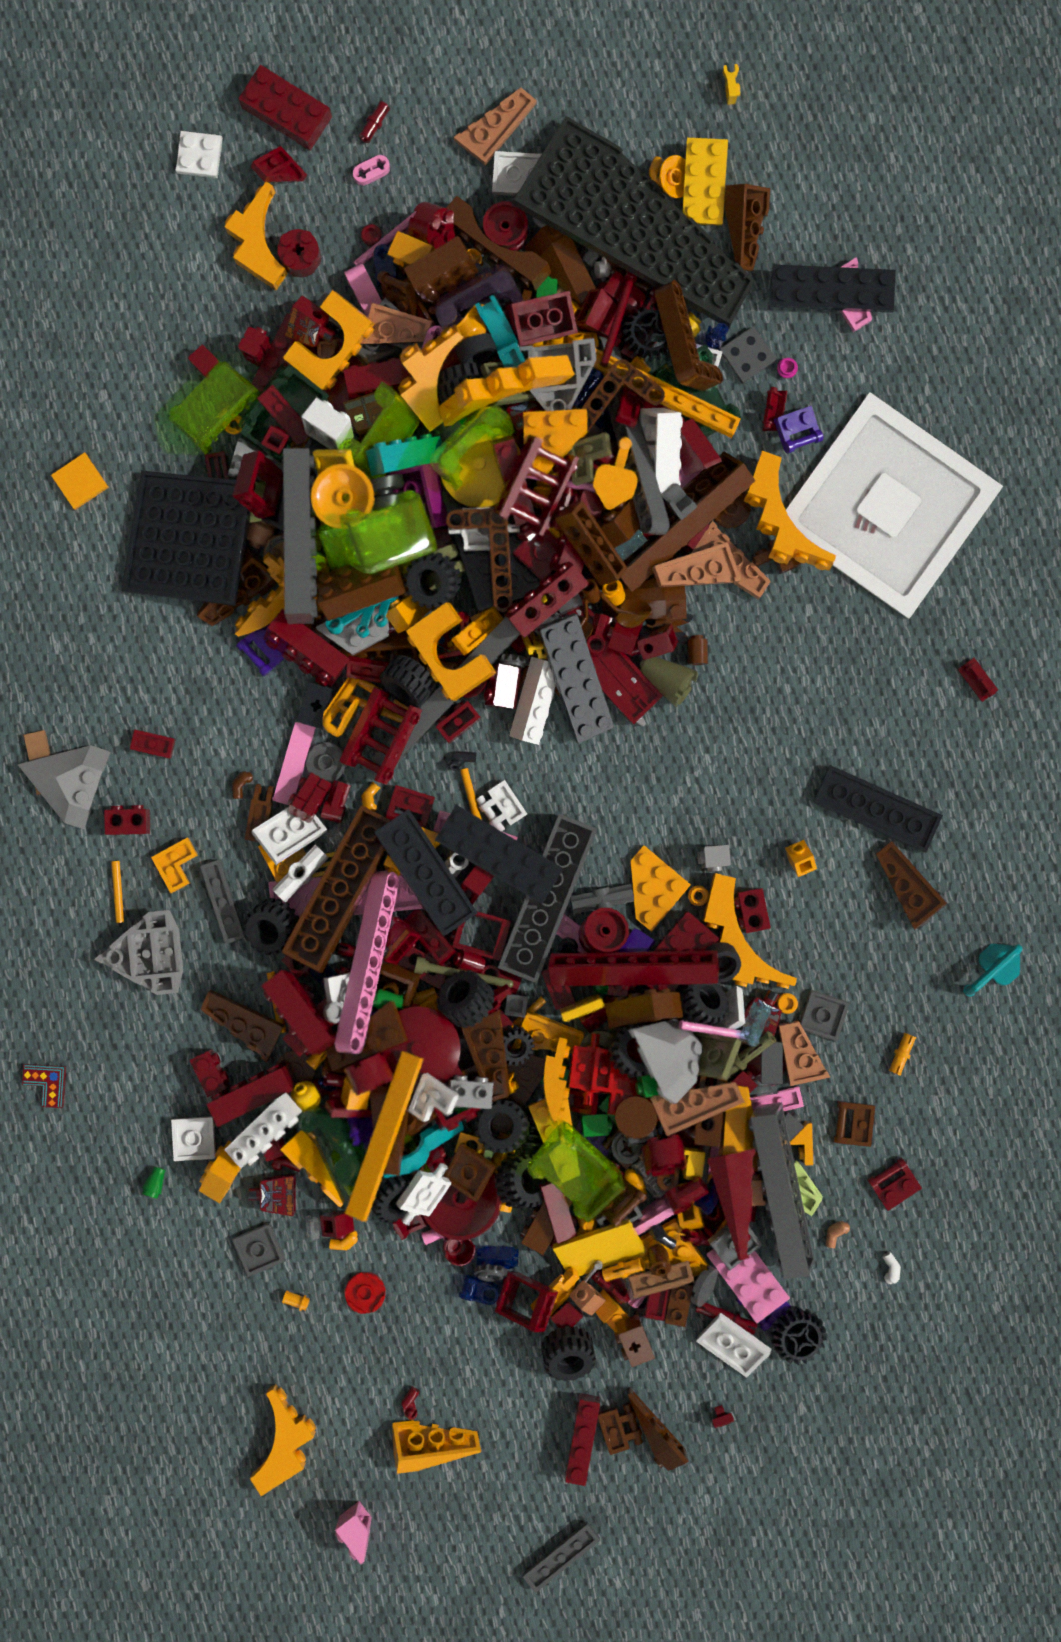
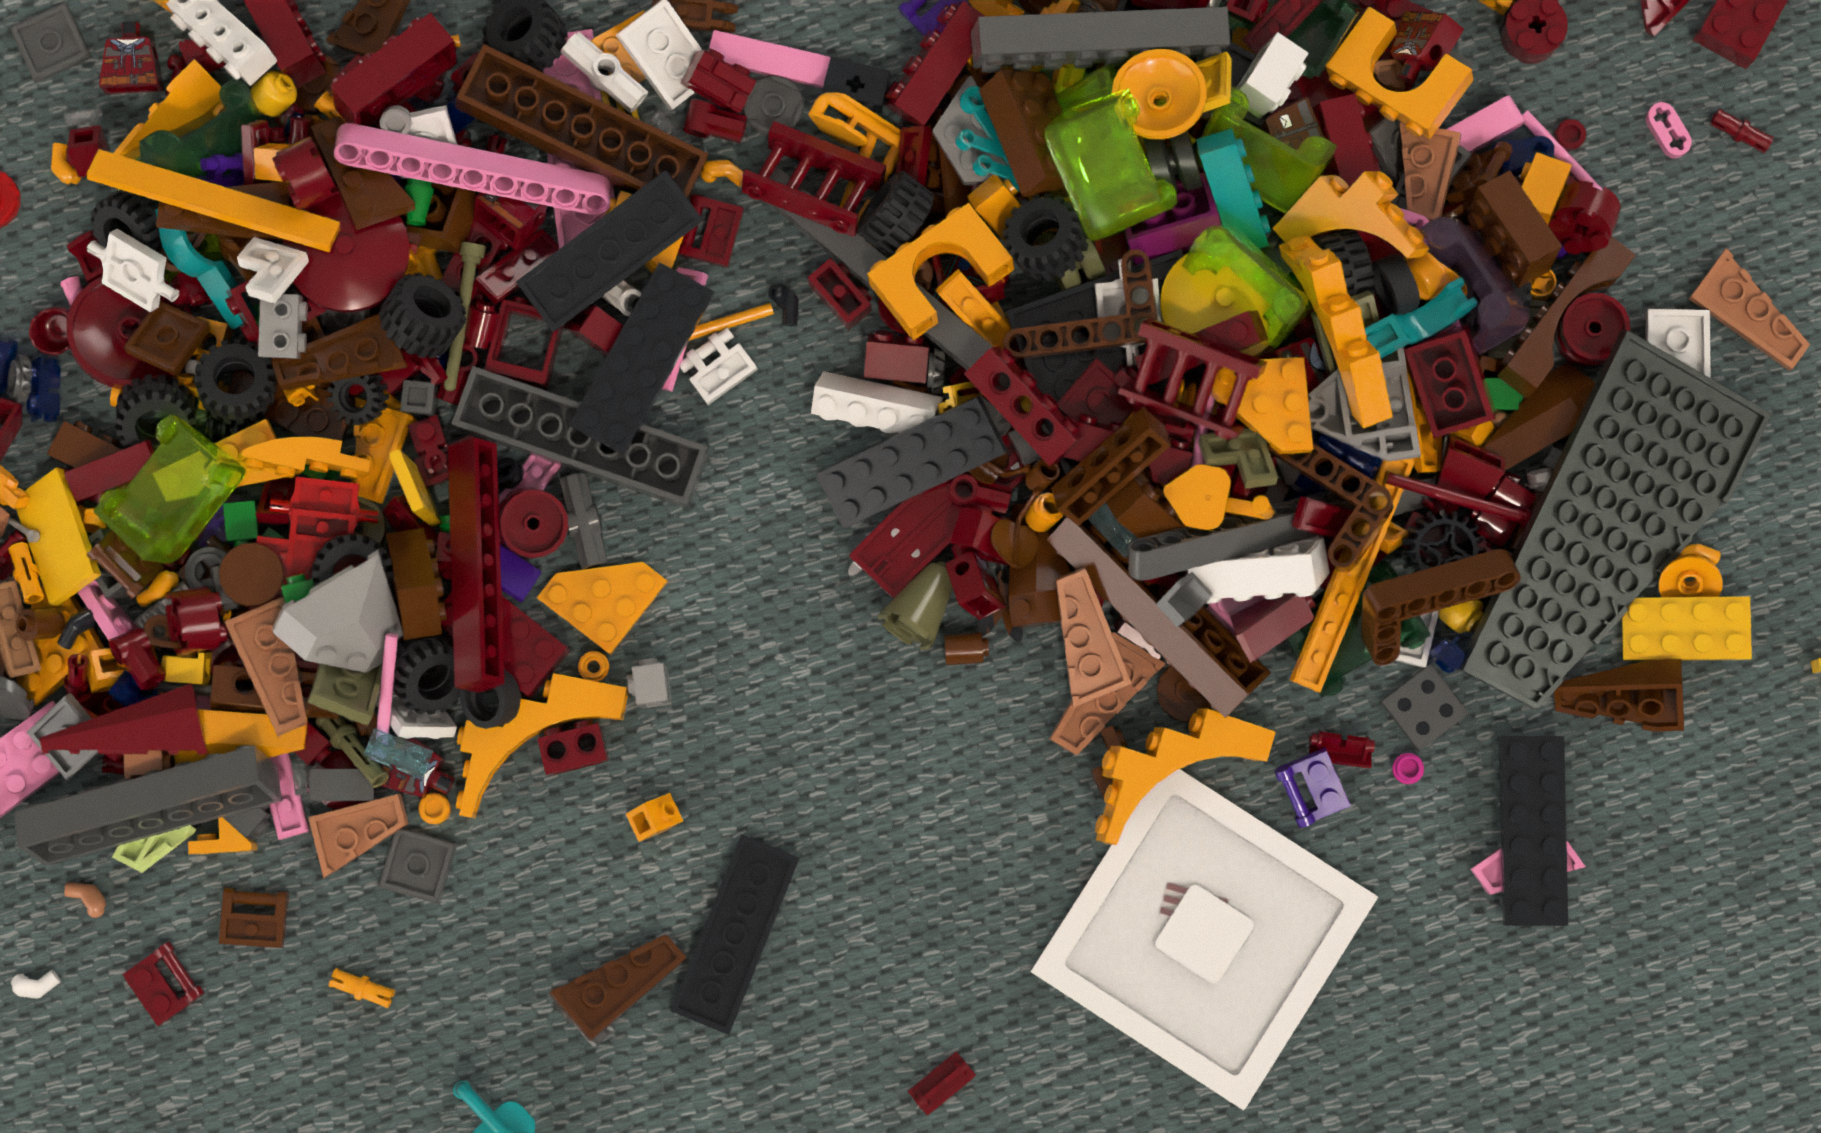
camera: 90 degrees right, 5 degrees down
(543, 999) = (429, 439): none -> dark red plate

